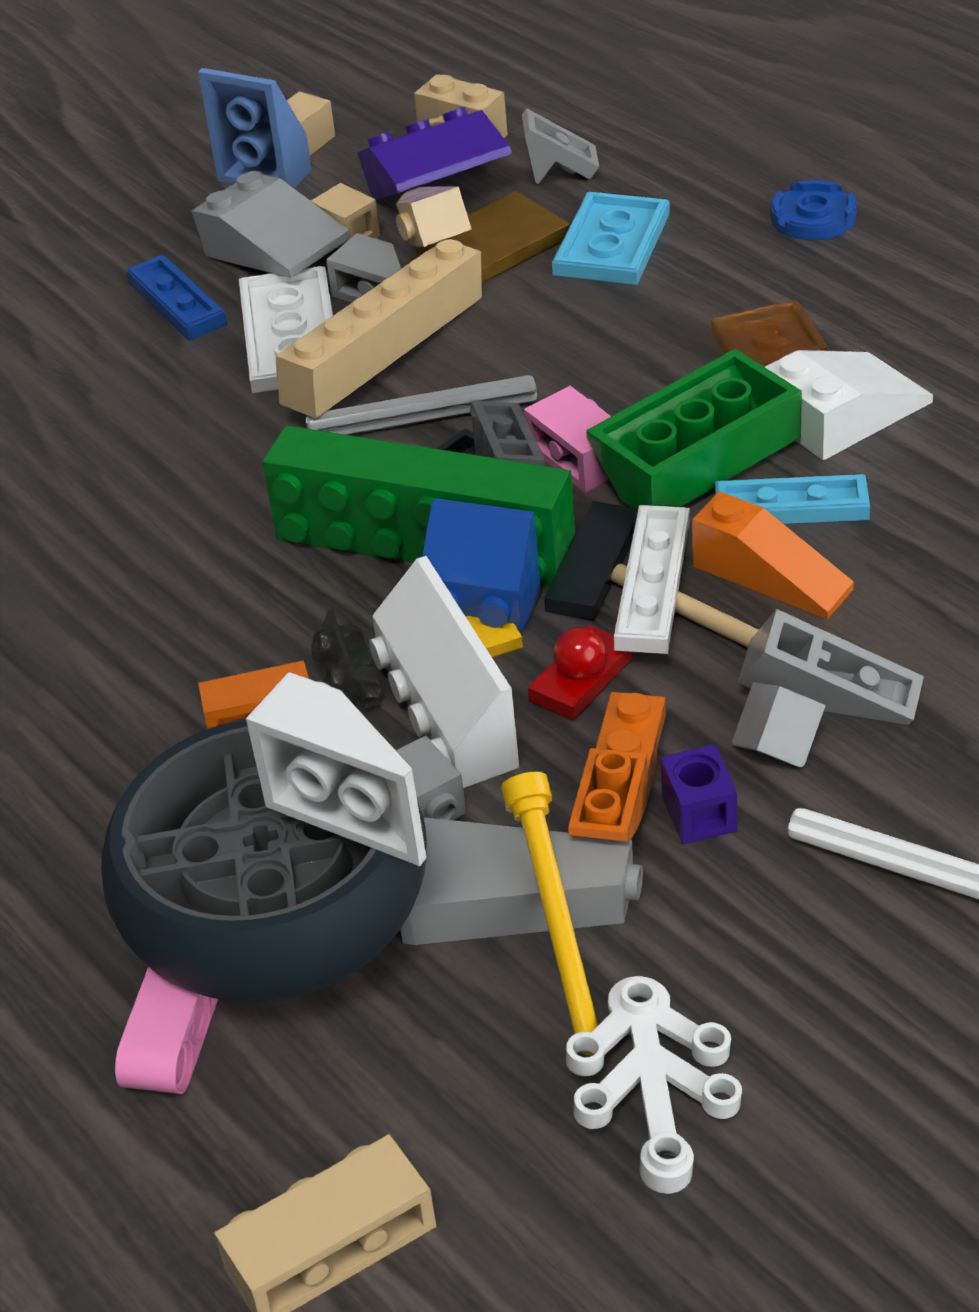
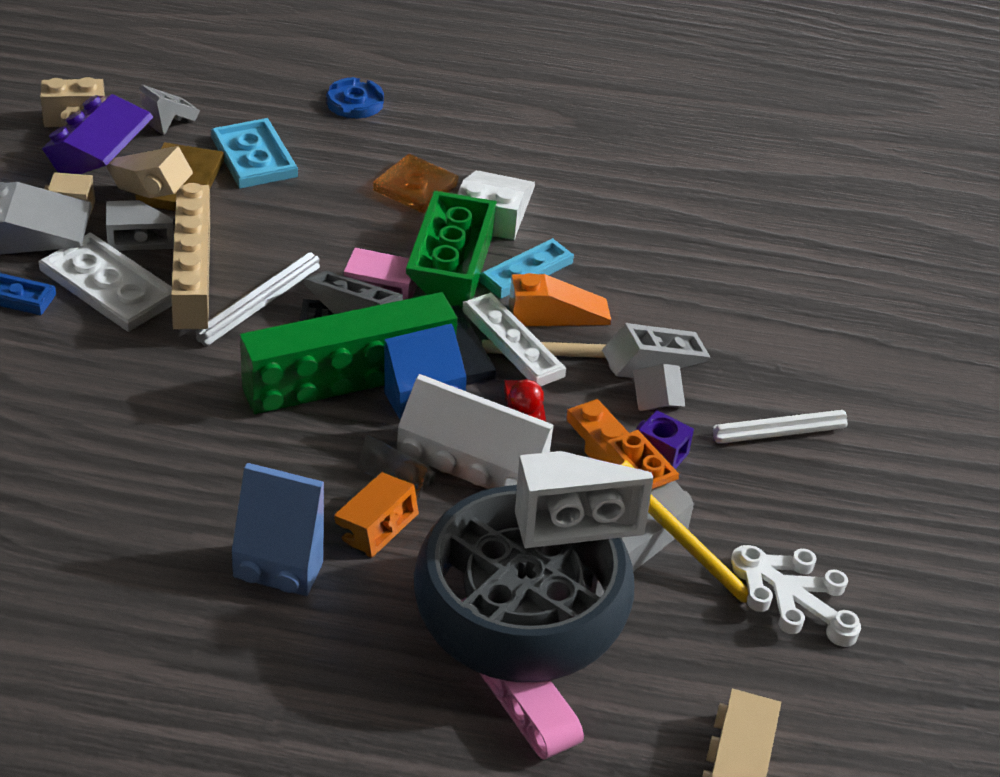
camera: 50 degrees left, 0 degrees up
(99, 671) = (279, 530): none -> medium blue slope

